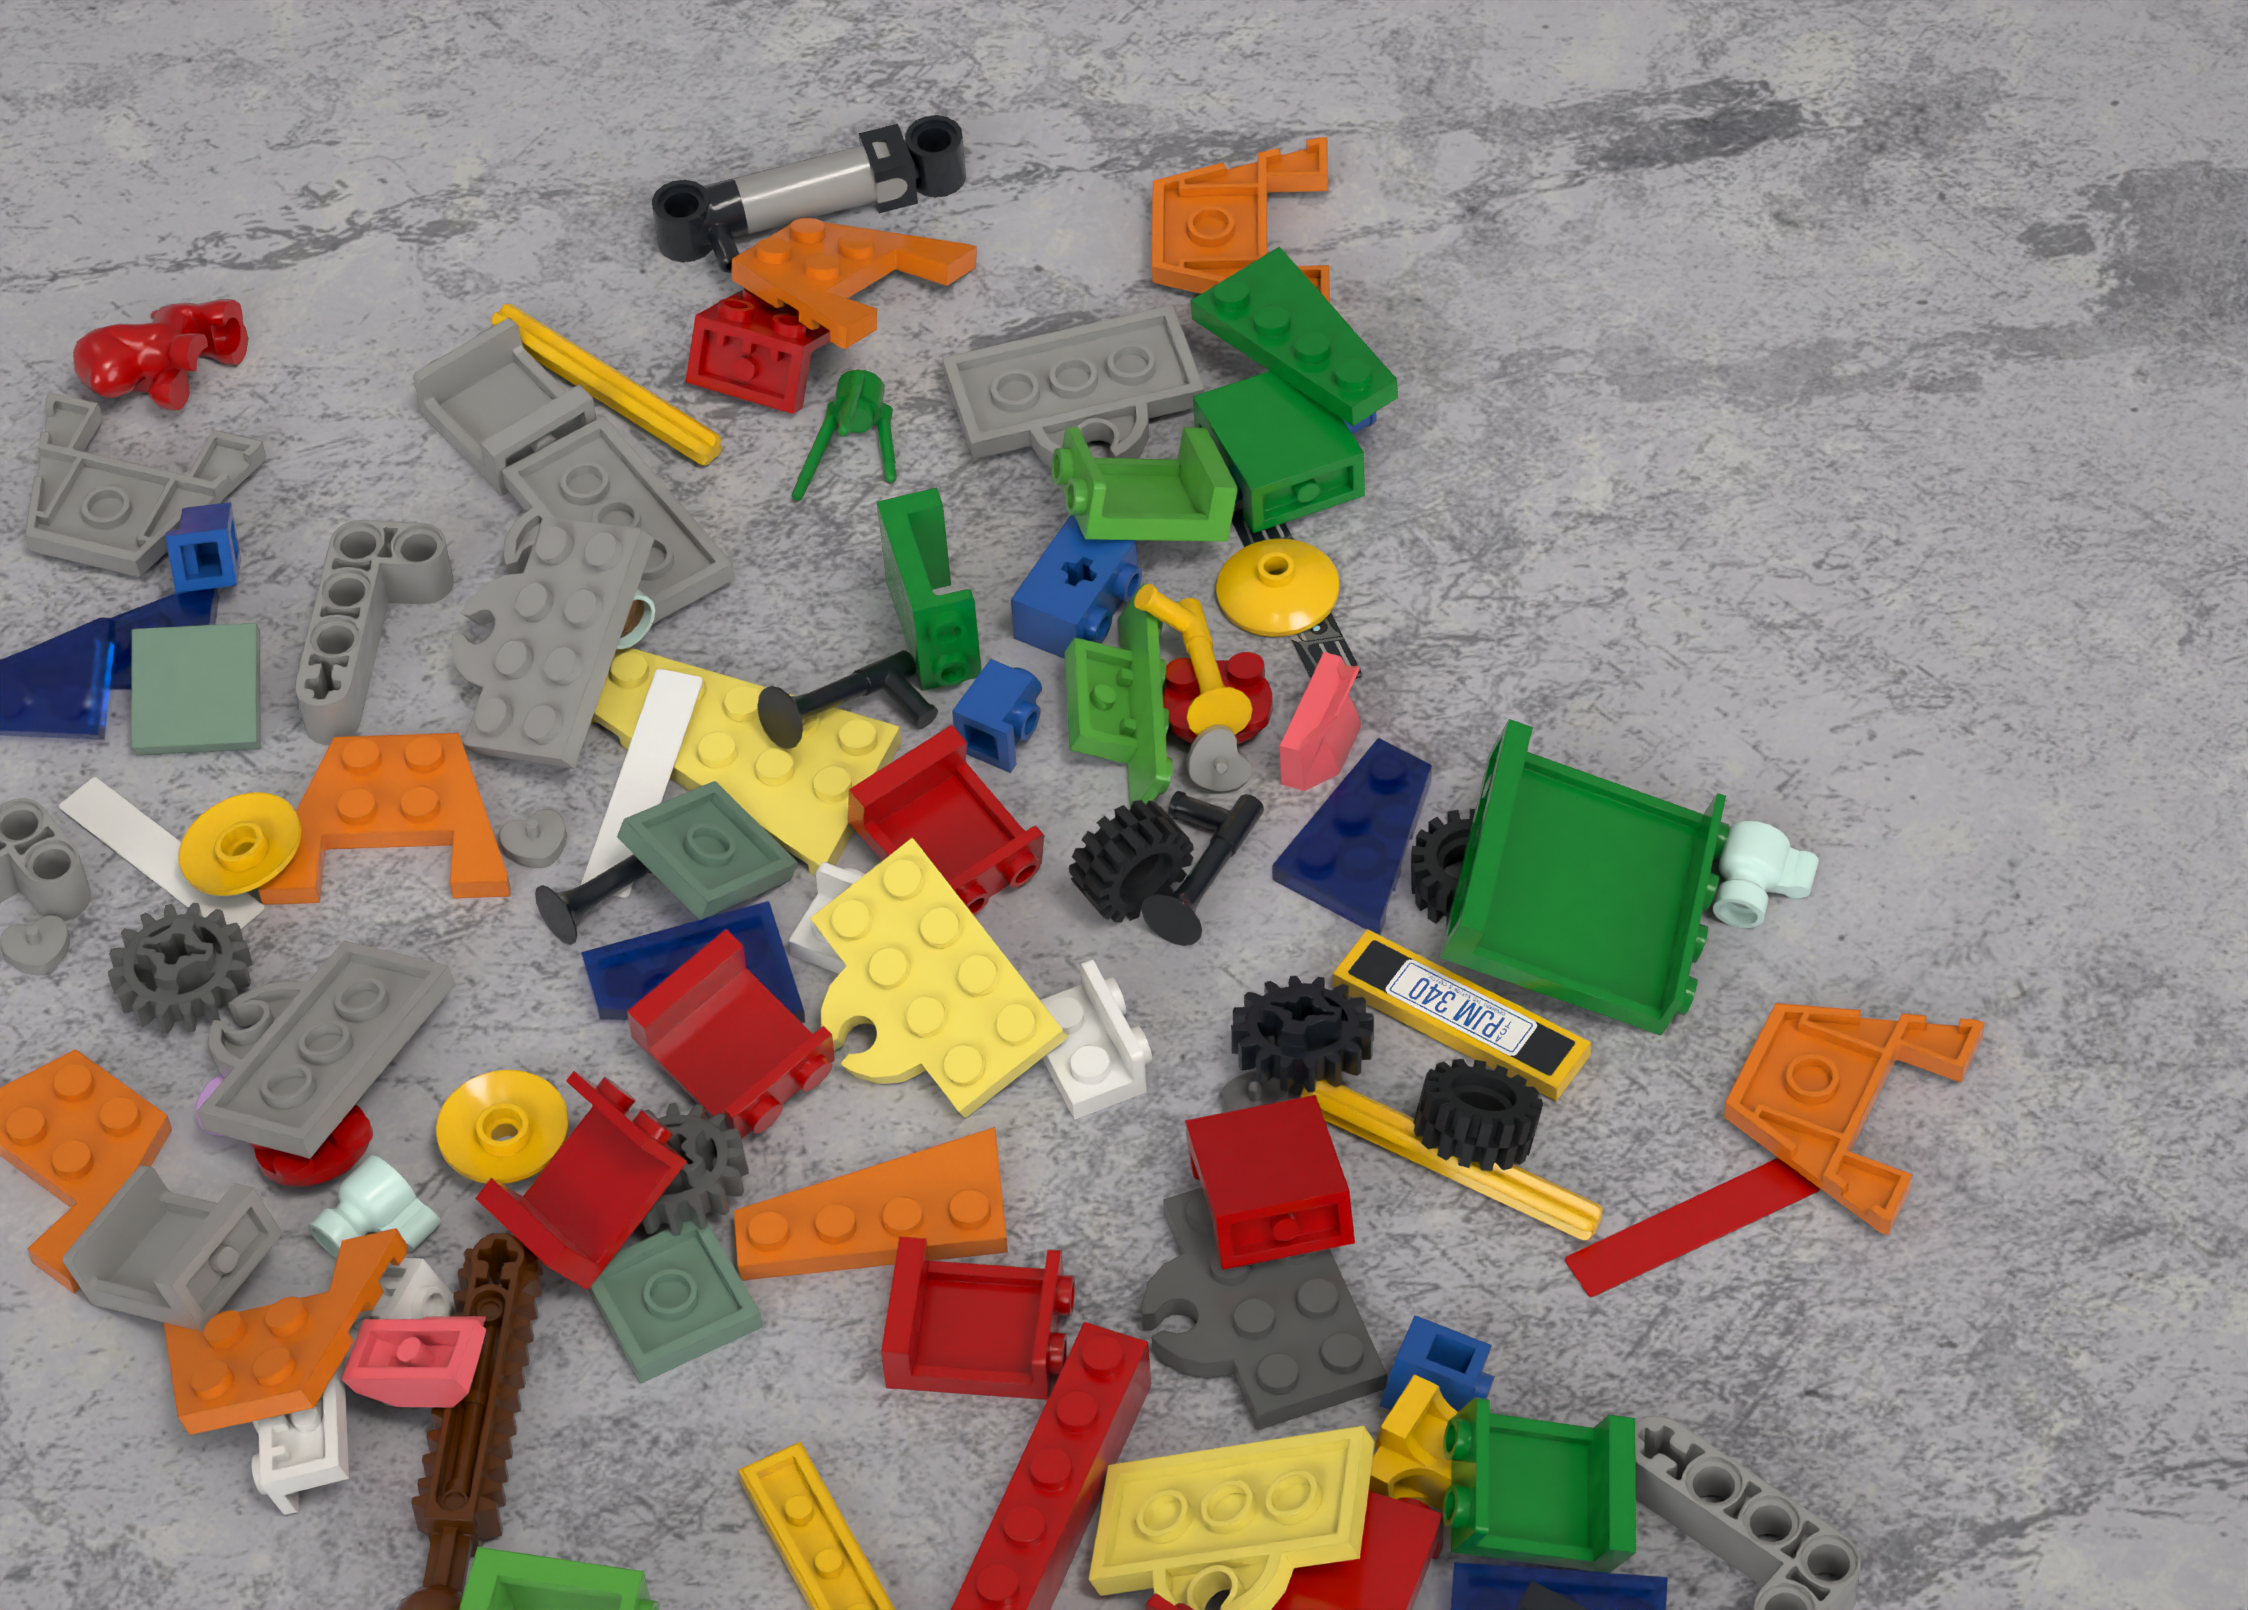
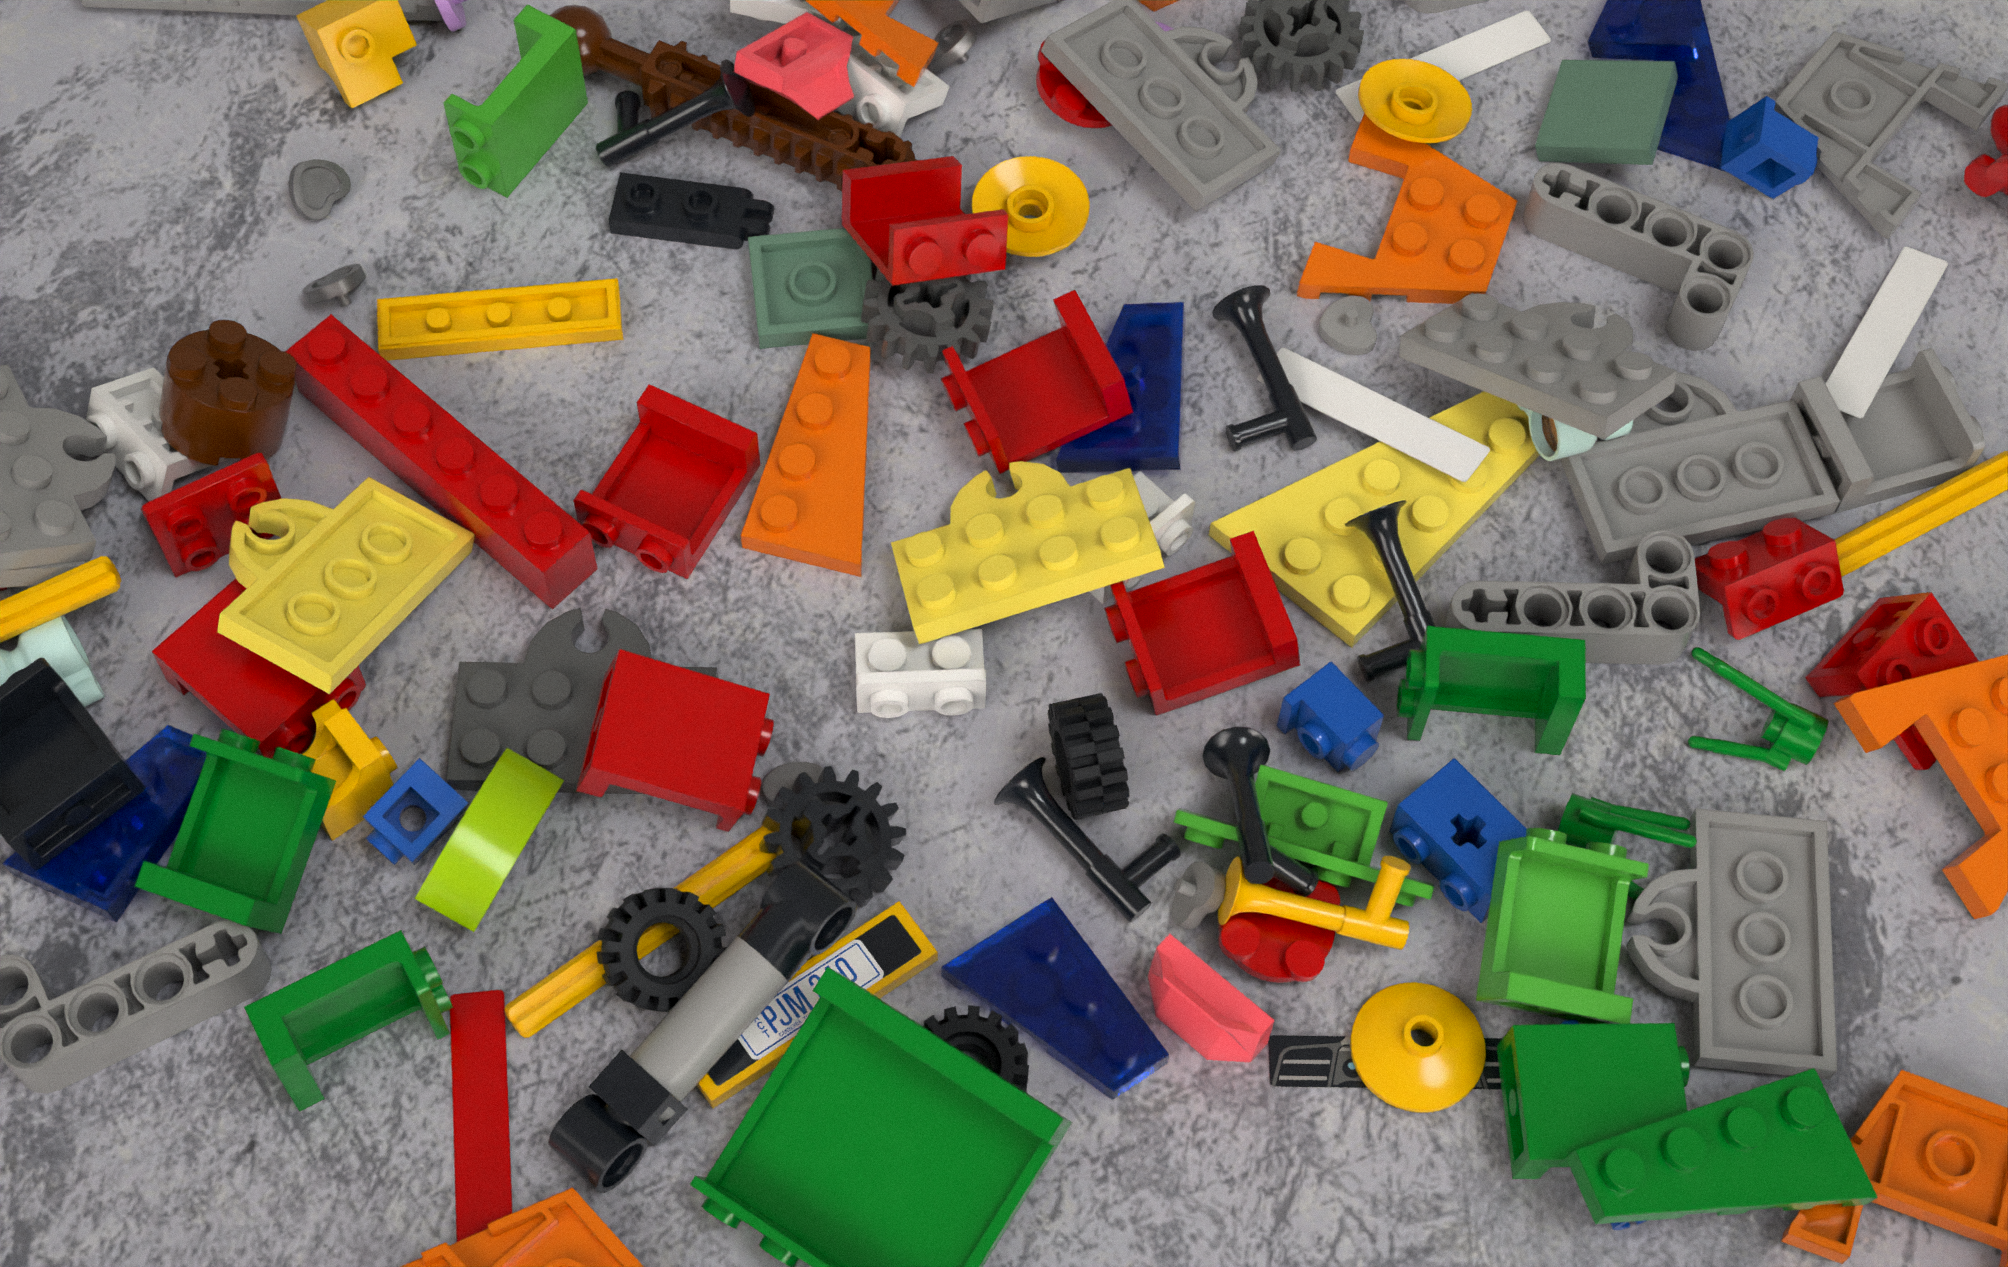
camera: 105 degrees right, 10 degrees up
(297, 1274) = (953, 44): none -> flat silver piece
(374, 1201) = (1000, 109): light aqua piece -> none
(379, 434) = (1884, 330): none -> white sticker
(551, 1525) = (634, 136): none -> black piece
(619, 1453) = (687, 211): none -> black hinge
(701, 451) = (1770, 575): none -> red bracket
(707, 850) = (1258, 427): sand green tile -> none
(786, 520) = (1571, 606): none -> light grey beam
(1018, 515) = (1599, 821): none -> green plant
(1182, 687) = (1237, 756): none -> black piece
(1460, 1281) = (489, 839): none -> lime brick
(1616, 1076) = (643, 1092): none -> black piece
(1667, 1326) = (344, 1006): none -> green panel

